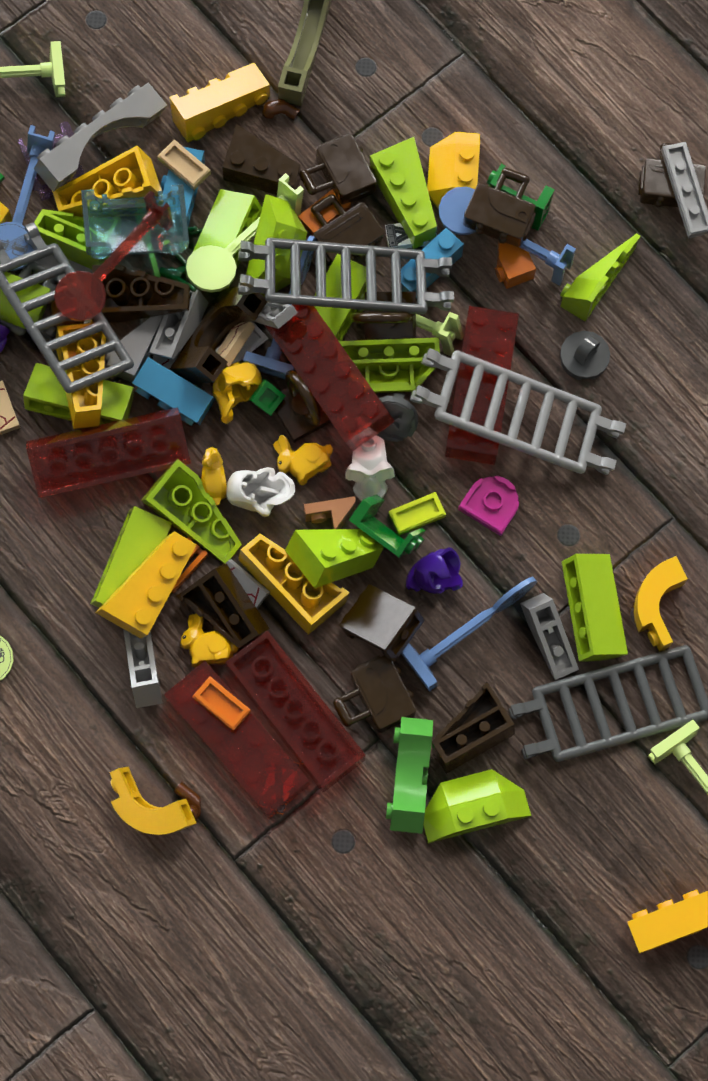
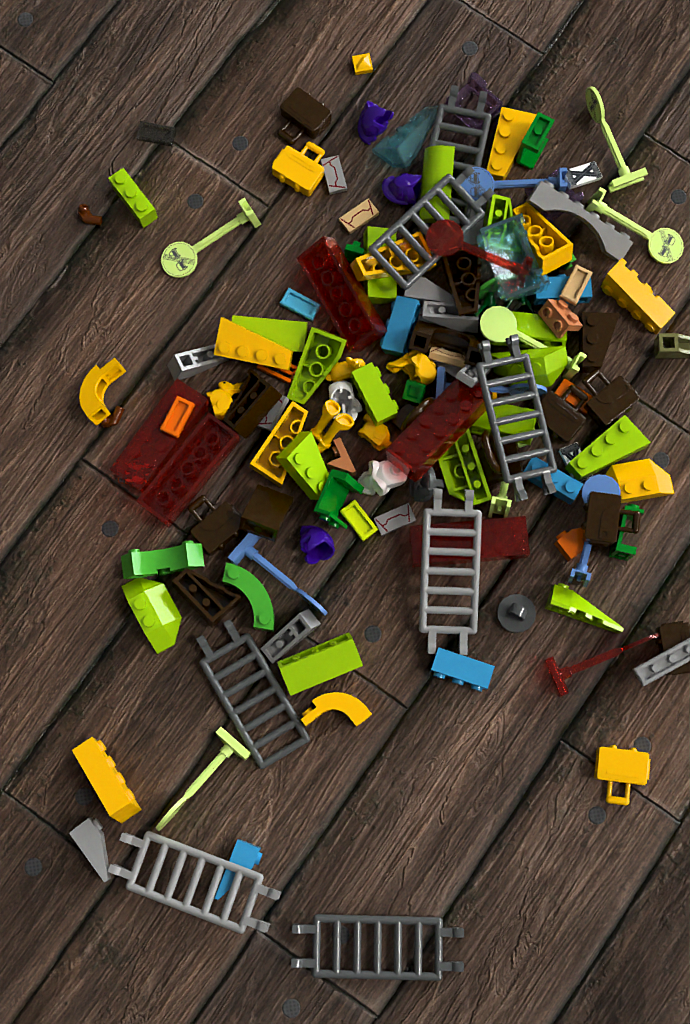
camera: 80 degrees right, 5 degrees up
(32, 113) = (582, 175): none -> tile
(52, 423) = (353, 251): none -> green tile
(100, 514) = (300, 304): none -> medium azure tile
(153, 51) = (663, 244): none -> yellowish green piece
(221, 196) = (559, 317): none -> nougat bracket
(259, 445) = (374, 394): none -> lime wedge
(271, 501) = (341, 422): none -> yellow piece
(279, 106) = (648, 342): reddish brown arm -> none
(427, 468) = (394, 519): none -> light grey tile
(483, 664) = (255, 592): none -> bright green brick
(491, 503) = (381, 572): dark pink tile -> none
(642, 436) = (462, 669): none -> dark azure brick
(675, 324) = (559, 675): none -> clear red piece

